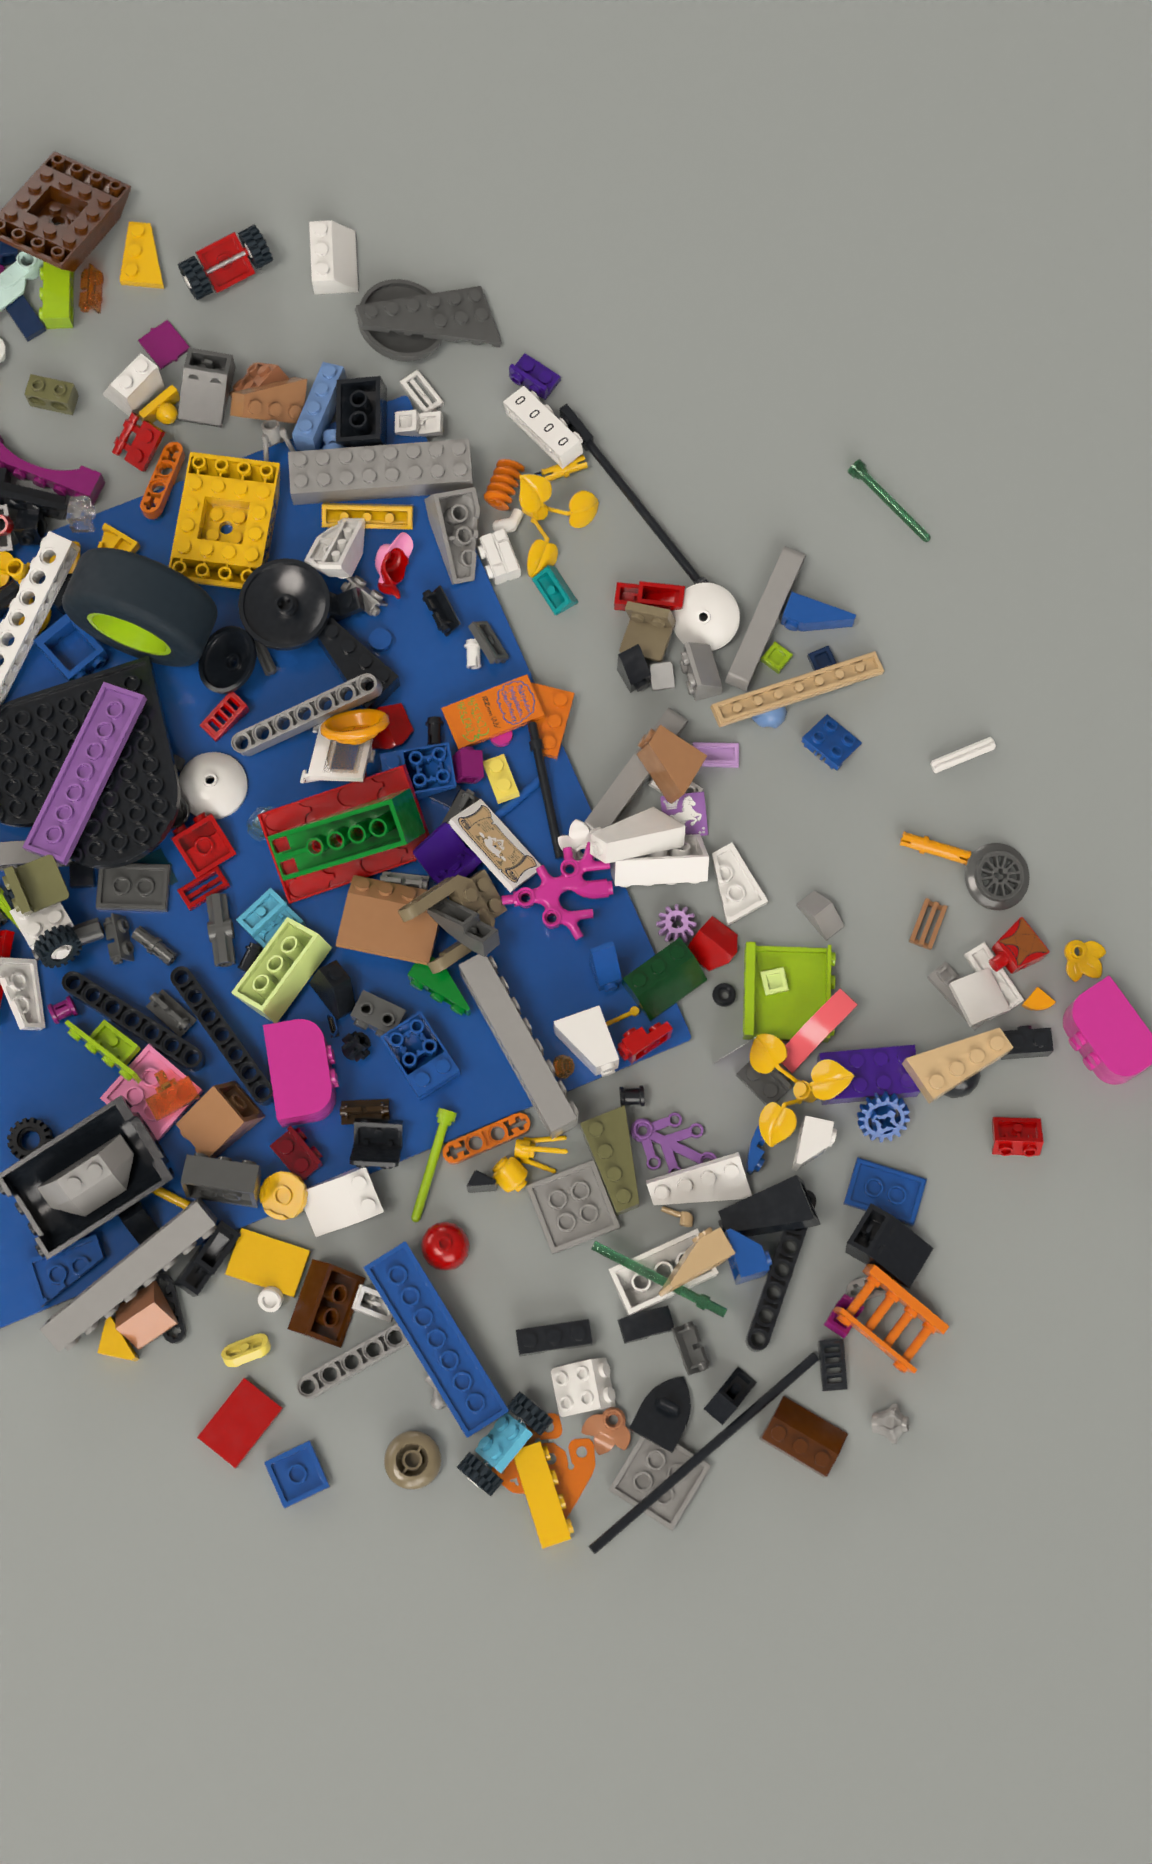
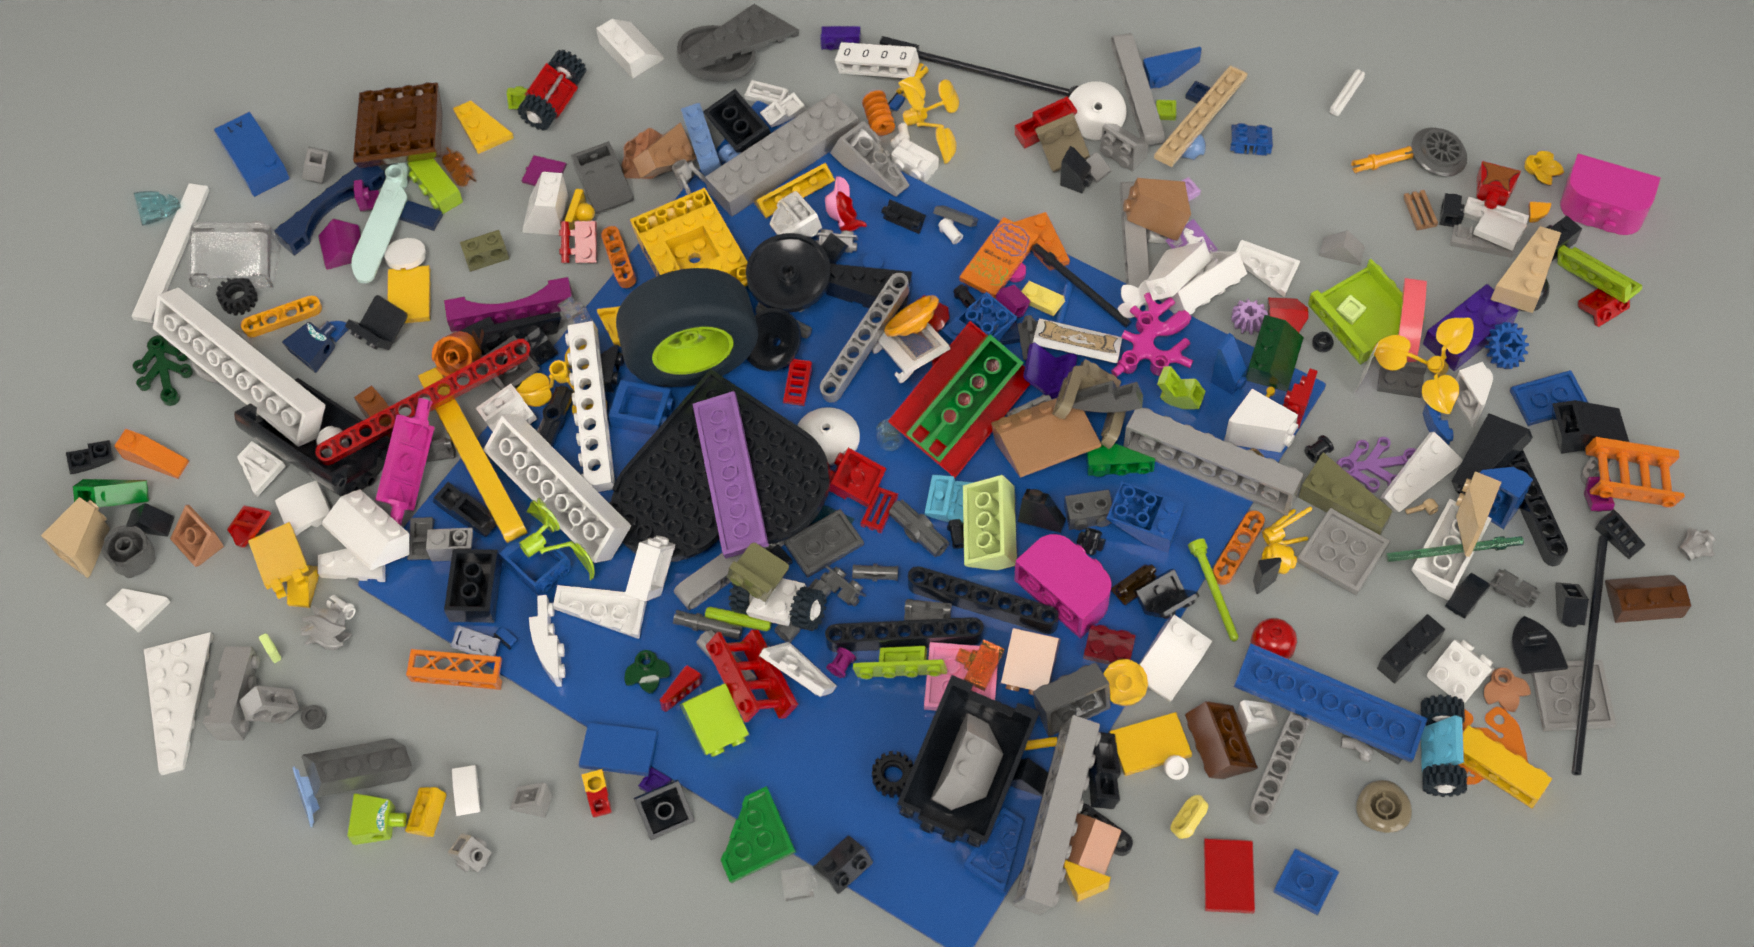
camera: 30 degrees left, 15 degrees down
(190, 246) = (515, 96): none -> lime tile
(548, 956) = (1178, 391): none -> lime brick
(554, 589) = (971, 160): teal slope -> none
(954, 945) = (1451, 210): none -> black brick
(1028, 1106) = (1598, 273): none -> lime fence

